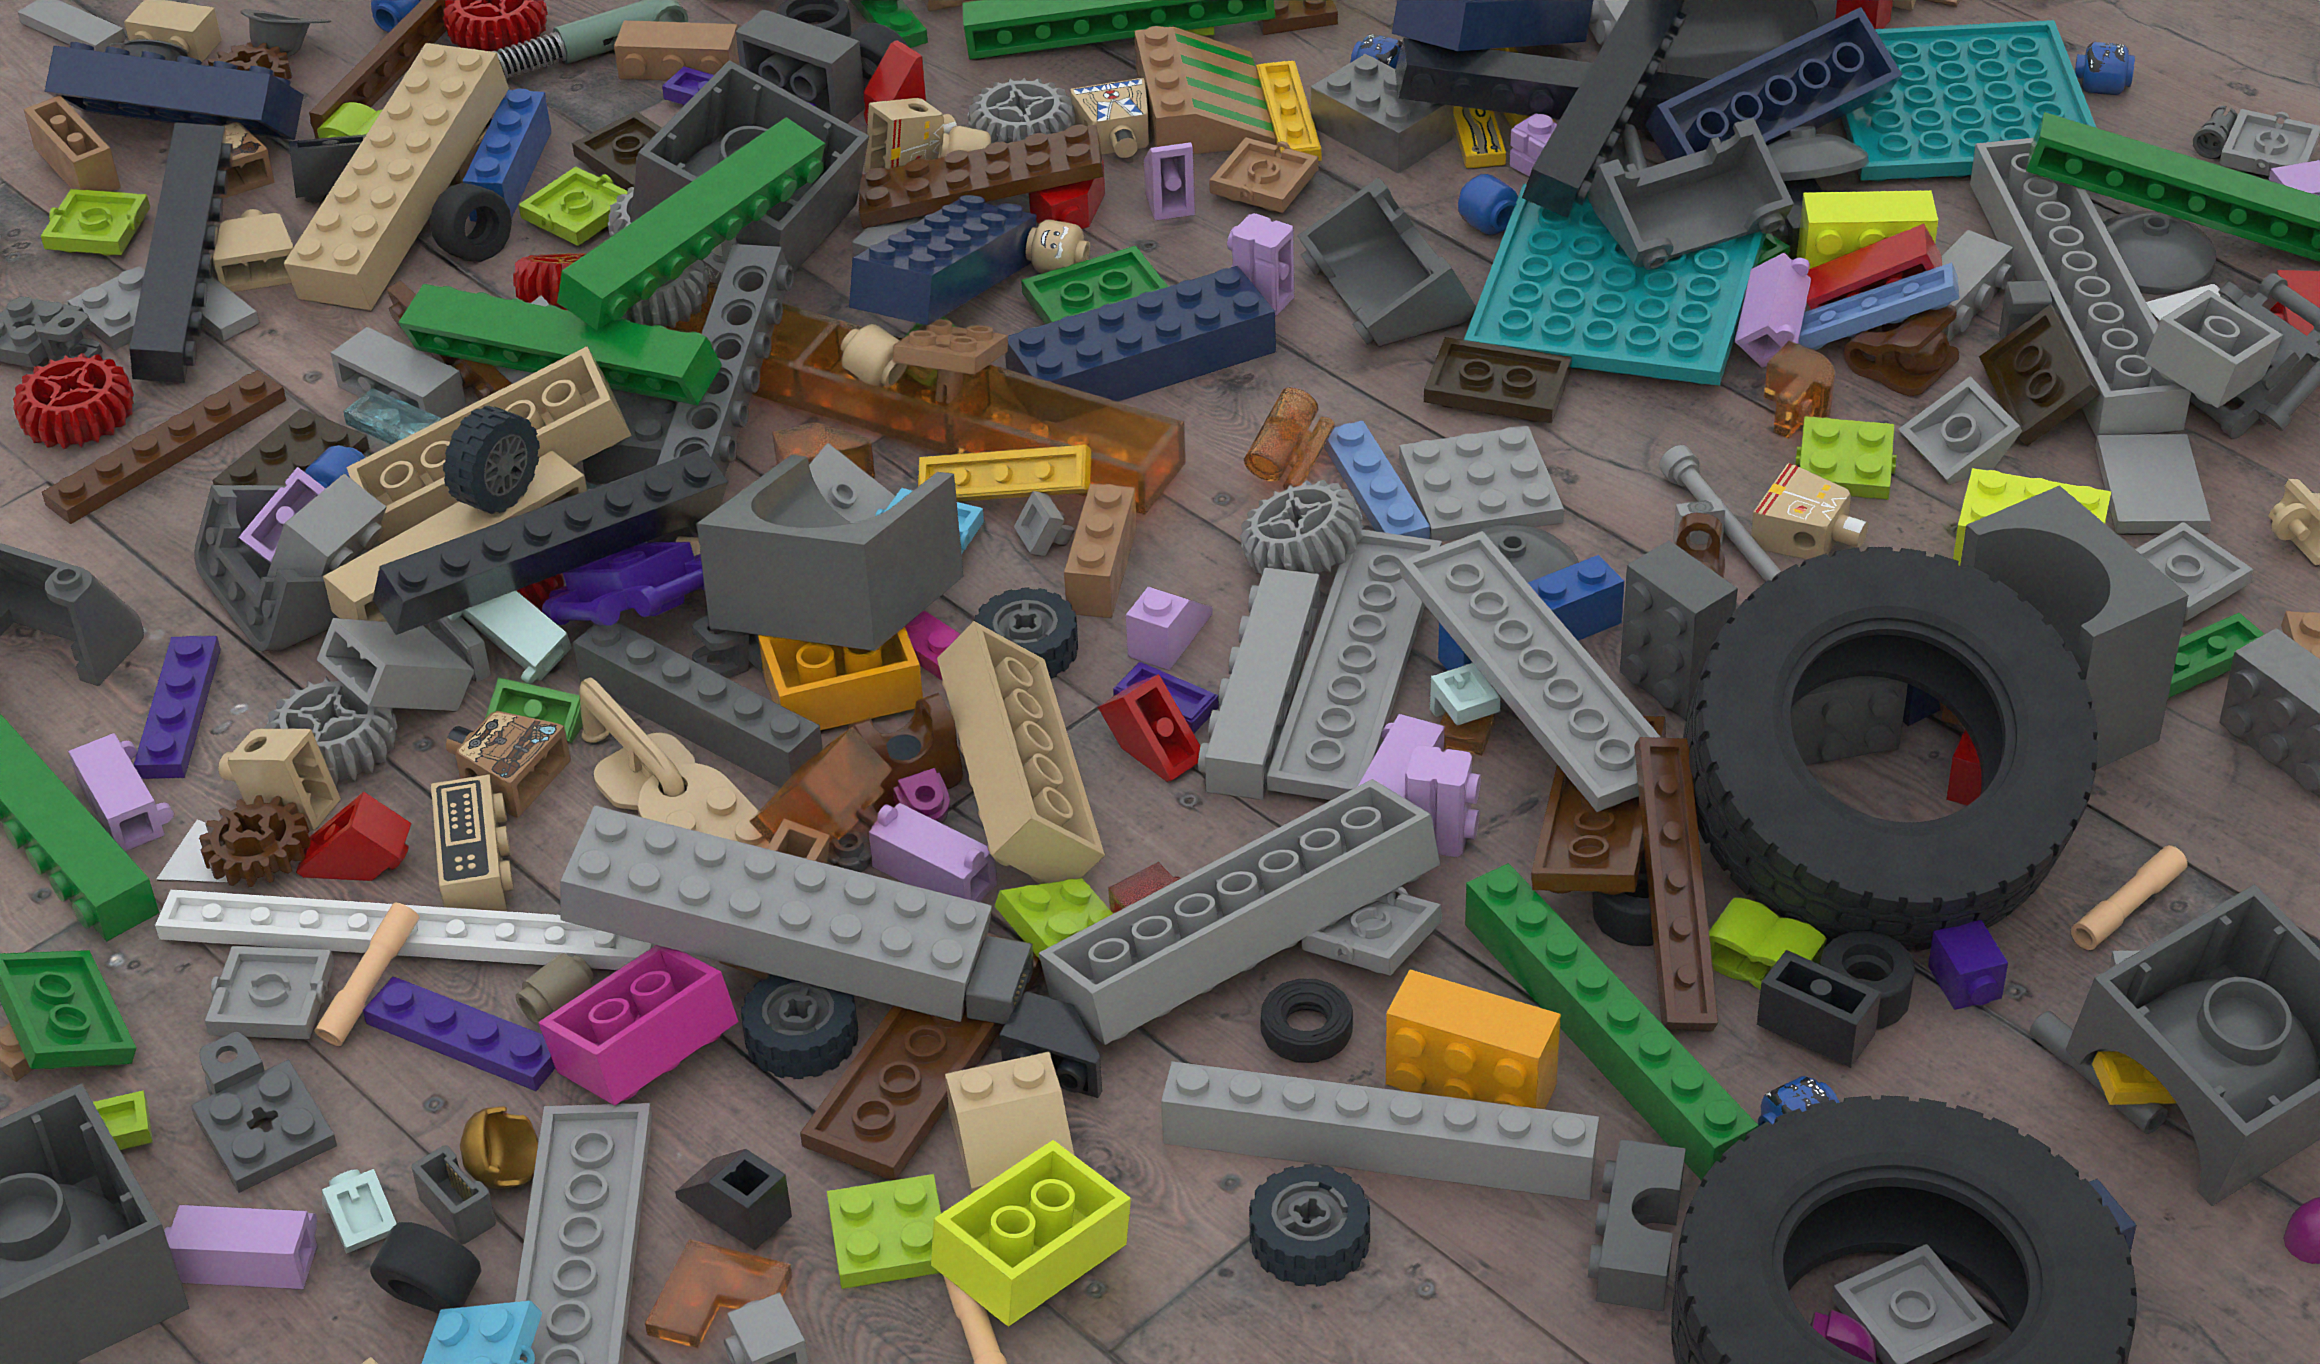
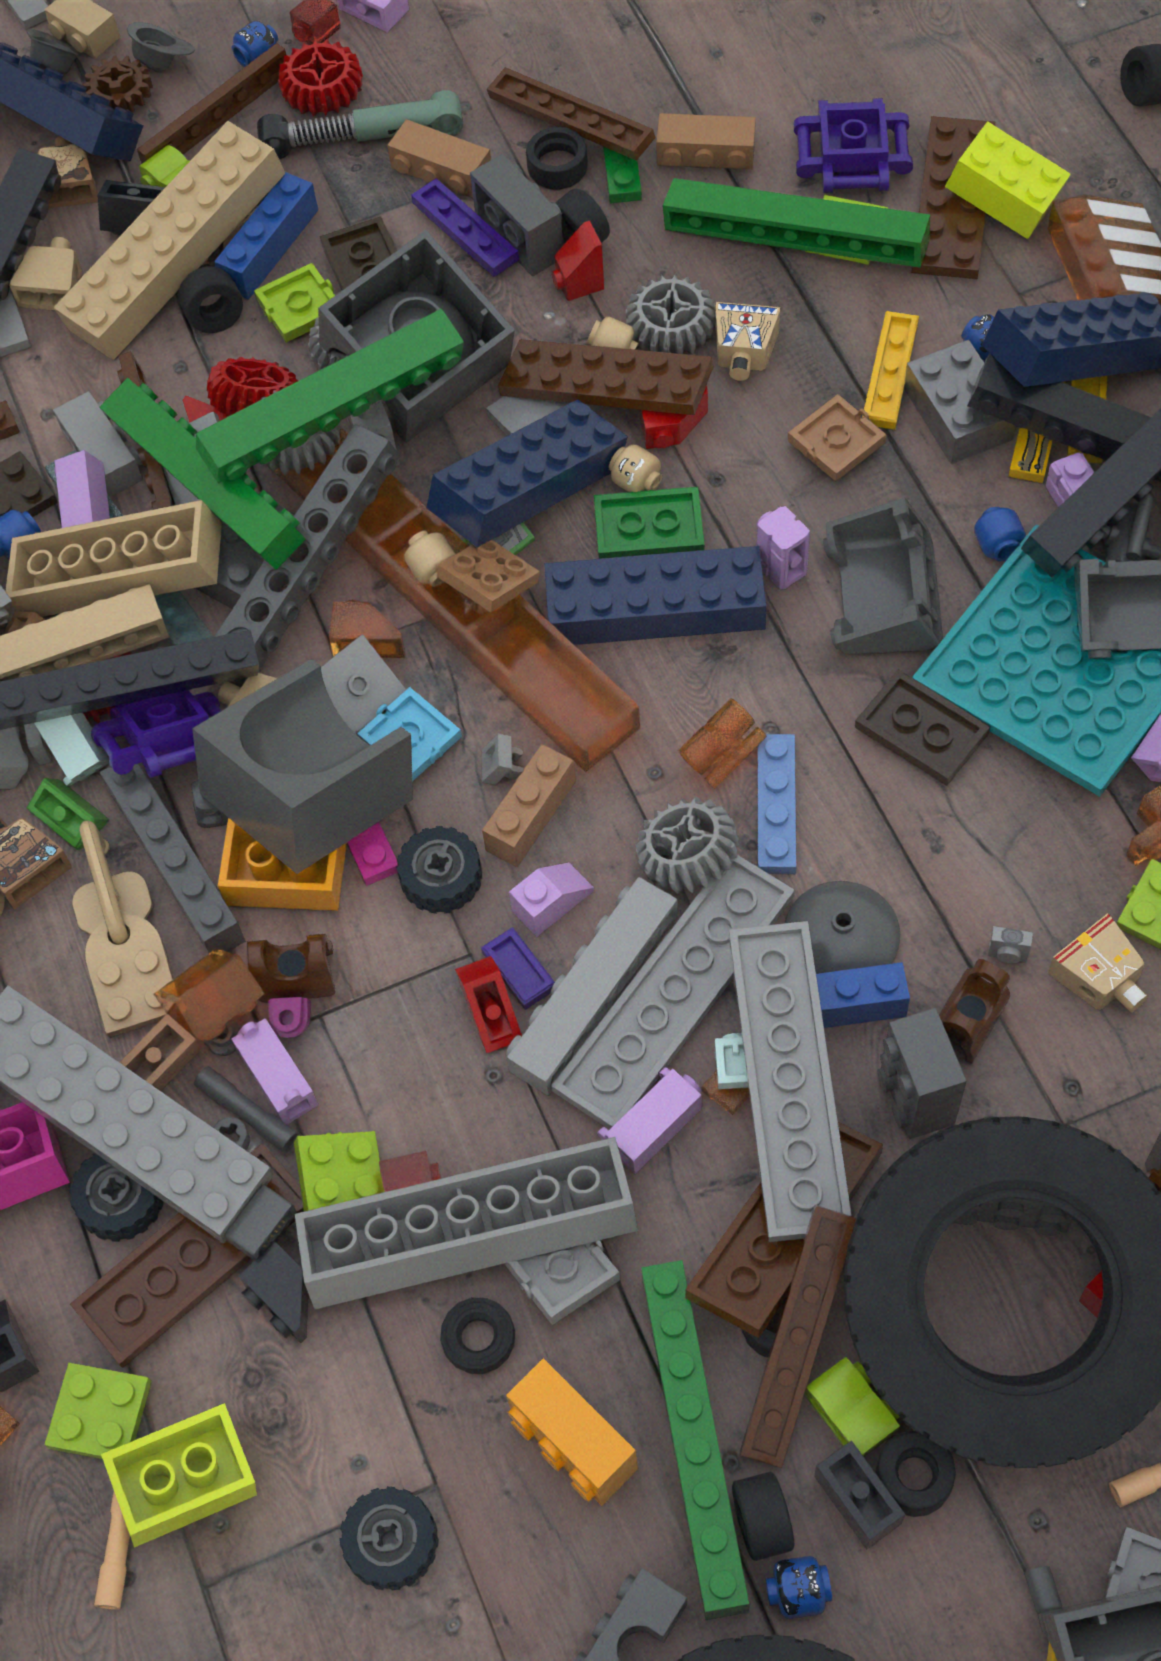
camera: 25 degrees right, 20 degrees up
(404, 398) = (81, 489): none -> lavender brick
(491, 459) = (82, 599): black wheel -> none
(904, 132) = (569, 311): tan torso -> none
(1005, 1114) = (218, 1355): tan slope -> none
(1013, 472) = (487, 705): yellow tile -> none
(1019, 757) = (368, 1007): tan brick -> none
(1170, 181) = (753, 427): lavender slope -> none
(1200, 91) = (826, 330): medium nougat slope -> none
(1380, 1130) = (478, 1474): light grey brick -> none
(1446, 789) = (662, 1171): lavender brick -> none
(1480, 482) = (860, 831): light grey plate -> none
(1683, 468) = (1027, 876): light grey piece -> none
(1731, 1050) = (763, 1516): none -> black tyre
(1968, 965) = (1004, 1495): dark purple brick -> none

